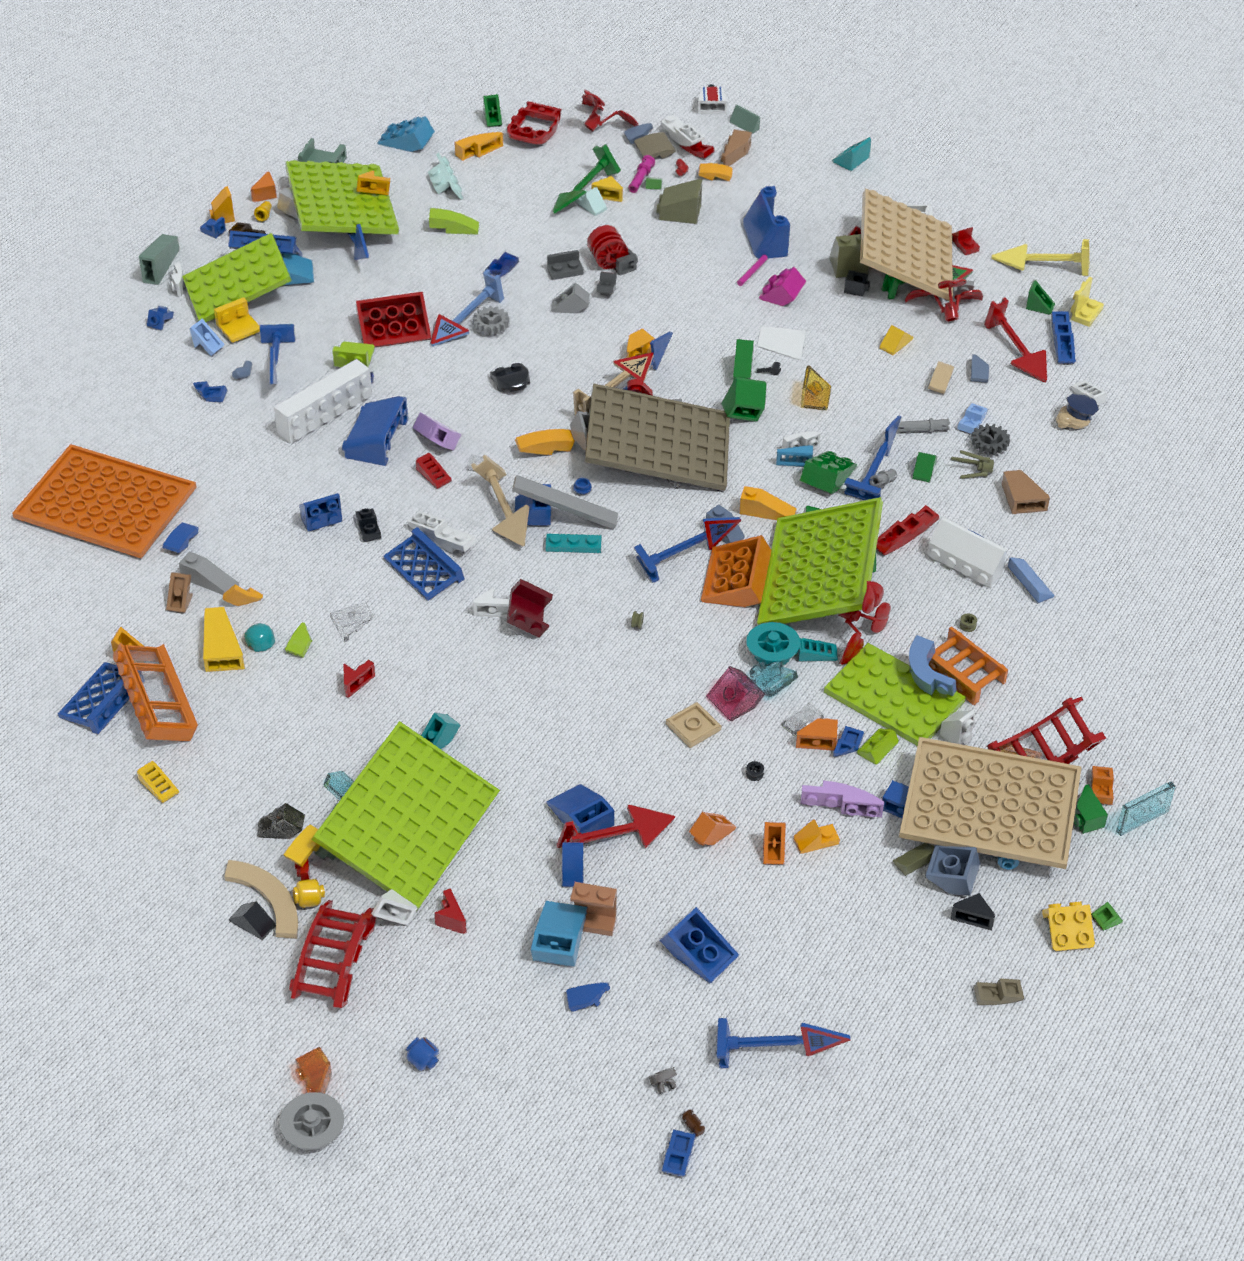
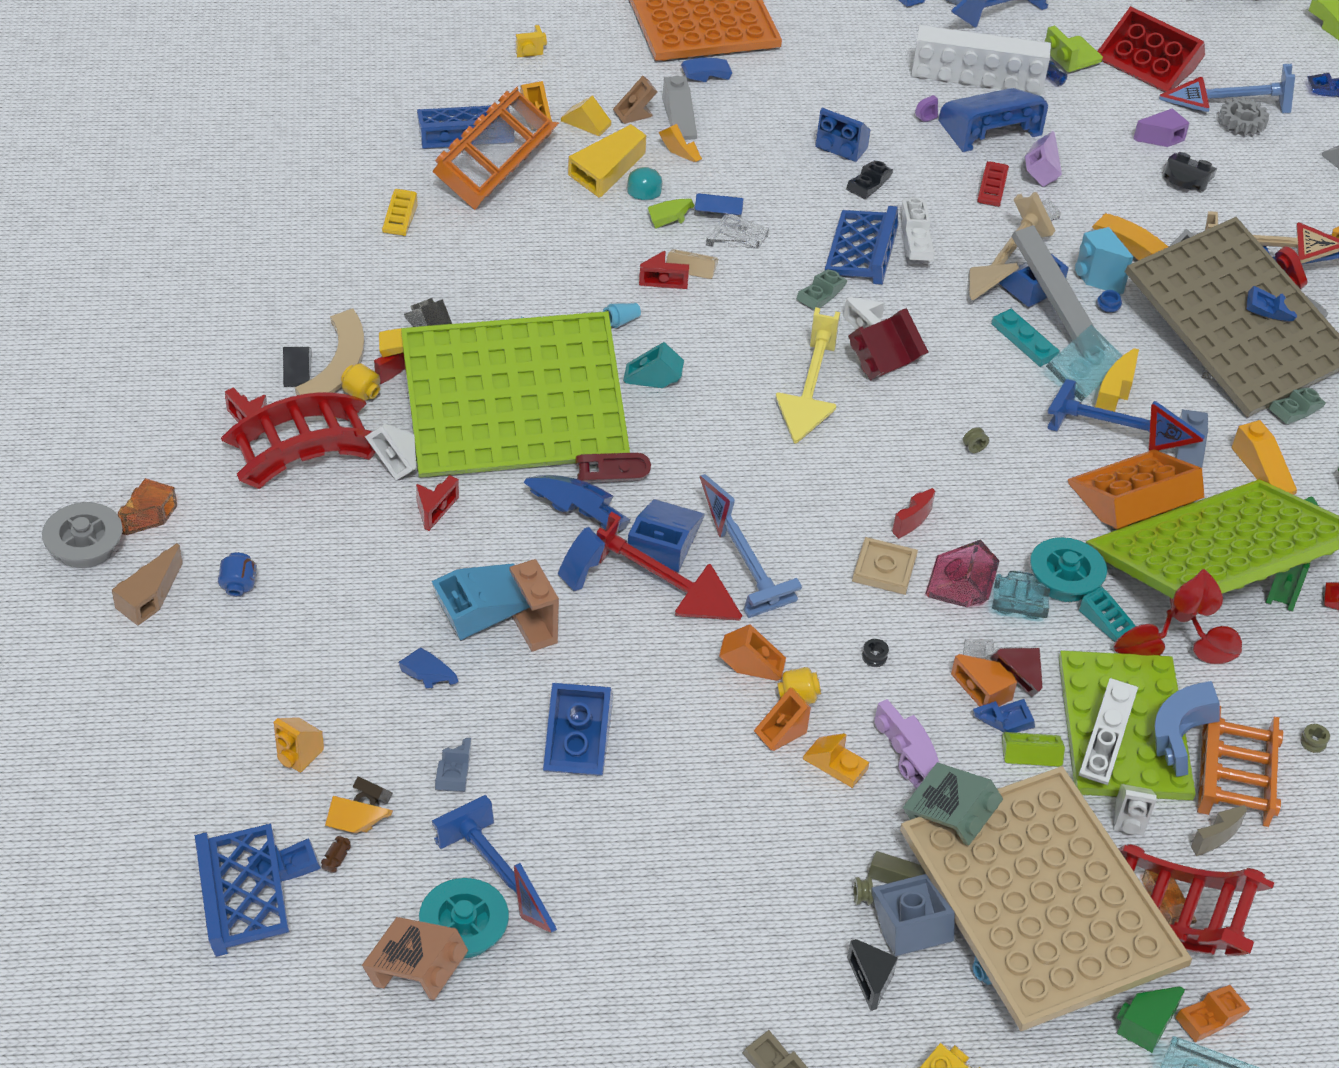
camera: 50 degrees right, 0 degrees up
(56, 612) = (530, 43): none -> yellow bracket
(161, 627) = (588, 116): none -> yellow slope
(276, 973) = (239, 405): none -> red slope
(321, 612) = (719, 204): none -> blue slope
(336, 455) = (927, 109): none -> medium lavender tile
(357, 657) = (699, 264): none -> tan slope
(371, 722) = (622, 313): none -> medium azure cone
(392, 1108) = (147, 588): none -> medium nougat slope
(443, 610) = (823, 289): none -> sand green slope
(465, 362) = (1162, 129): none -> medium lavender slope
(504, 805) = (613, 467): none -> dark red plate
(509, 838) = (572, 493): none -> blue slope
(538, 685) = (804, 412): none -> light yellow piece
(557, 465) = (1103, 260): none -> medium azure slope
(596, 770) = (769, 595): none -> medium blue piece
(596, 1094) = (297, 742): none -> light orange slope
(623, 529) = (1085, 361): none -> clear light blue tile
(652, 527) = (1117, 381): none -> yellow slope
(667, 420) = (1268, 305): none -> blue slope
(668, 684) = (912, 517): none -> red slope
(672, 1198) = (213, 887): none -> blue fence
(675, 1027) = (454, 768): none -> sand blue slope
(675, 1096) = (354, 815): none -> light orange slope
(736, 463) = (1298, 405): none -> sand green slope
(754, 820) = (804, 683): none -> yellow head
(797, 1080) = (471, 908): none -> teal wheel
(809, 1117) = (416, 953): none -> nougat panel
(829, 708) = (1024, 665): none -> dark red slope
(904, 705) = (1108, 731): none -> white slope
(907, 798) = (955, 800): none -> sand green panel
(917, 882) = (862, 890): none -> olive bush
(997, 702) = (1222, 830): none -> dark tan slope

